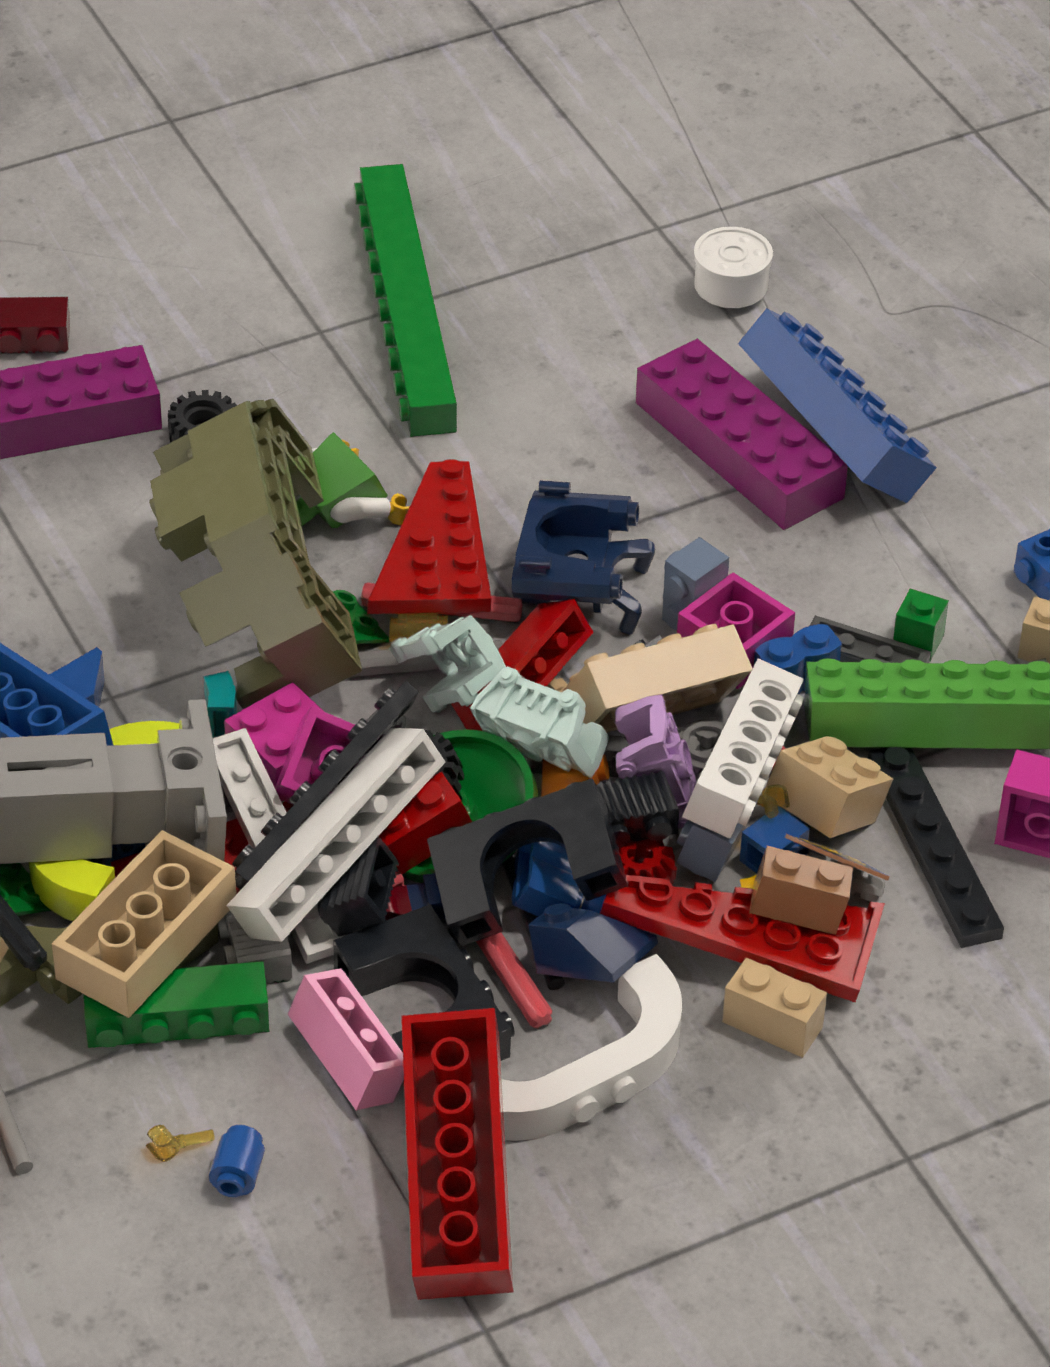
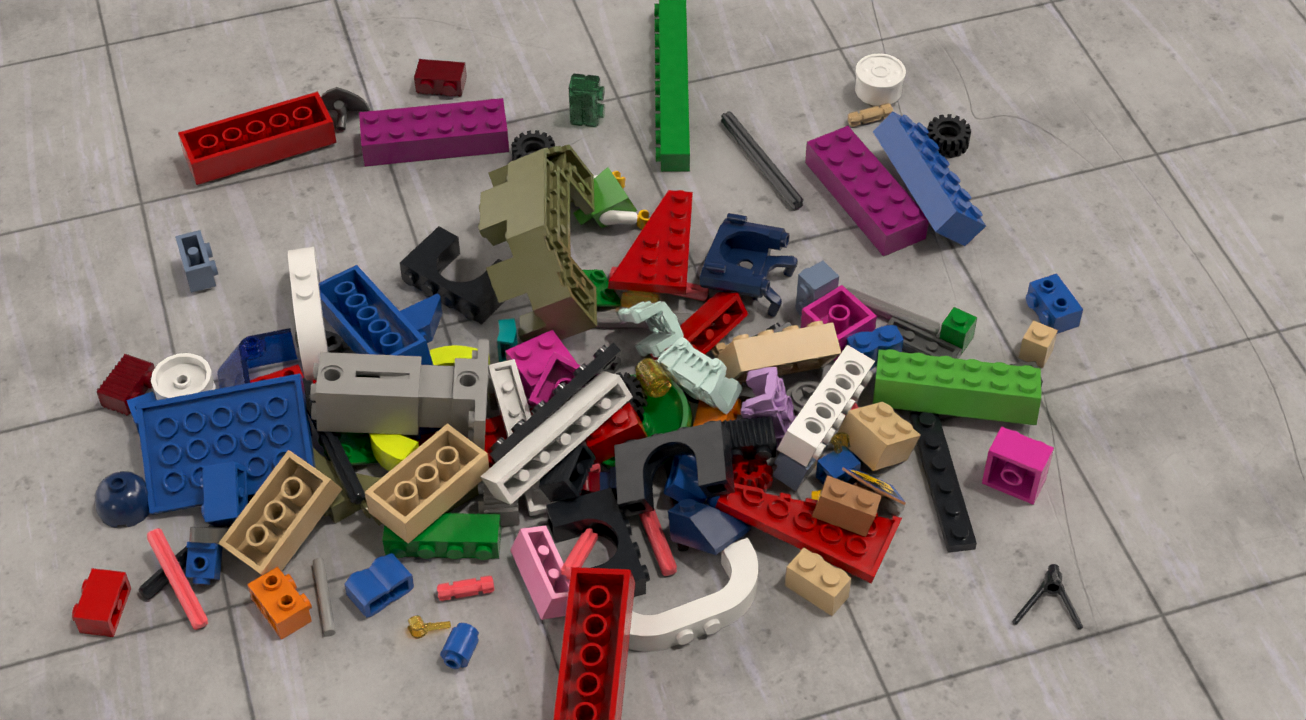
camera: 10 degrees right, 5 degrees up
(64, 619) = (424, 268): none -> black arch
(89, 1087) = (379, 585): none -> blue brick
(227, 1078) = (465, 588): none -> coral axle
(274, 338) = (585, 100): none -> clear green brick
(399, 1003) = (579, 552): none -> coral axle
(469, 733) = (653, 377): none -> clear yellow brick
(568, 404) = (761, 159): none -> black axle
(725, 322) = (869, 115): none -> tan axle
(808, 606) = (890, 310): none -> light grey axle
(865, 331) = (950, 126): none -> black tyre

